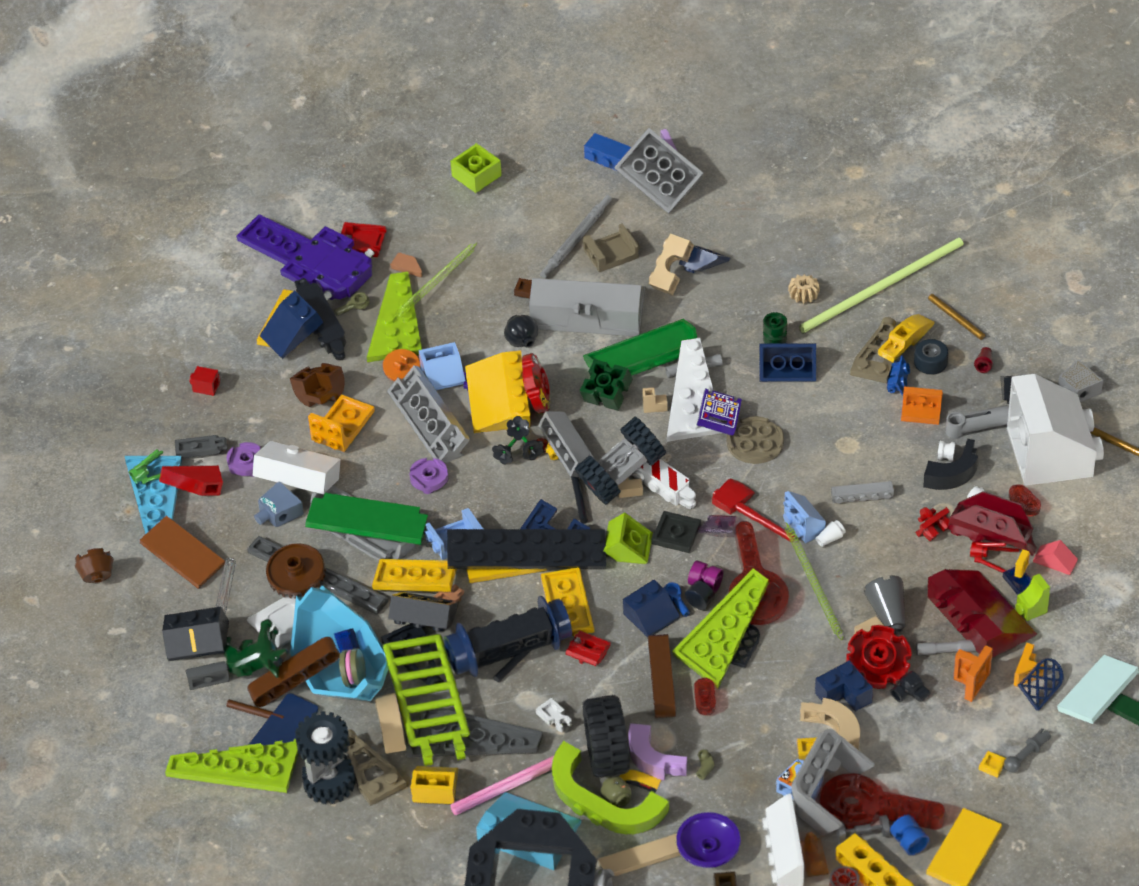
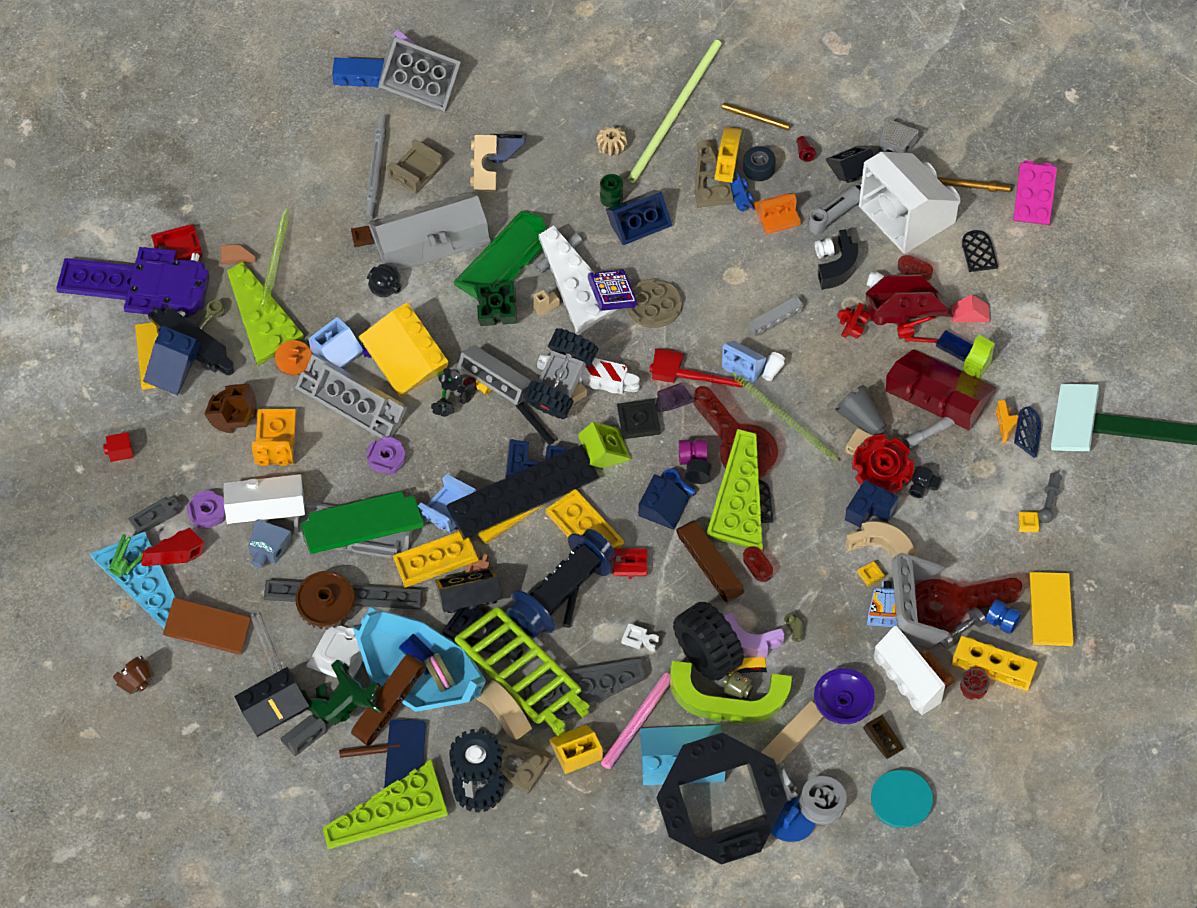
camera: 30 degrees left, 10 degrees up
(476, 168) = (244, 133): lime brick -> none
(536, 383) = (437, 328): red piece -> none
(972, 670) = (969, 445): orange bracket -> none
(1022, 563) = (951, 329): yellow tile -> none
(1087, 502) = (980, 257): none -> black window

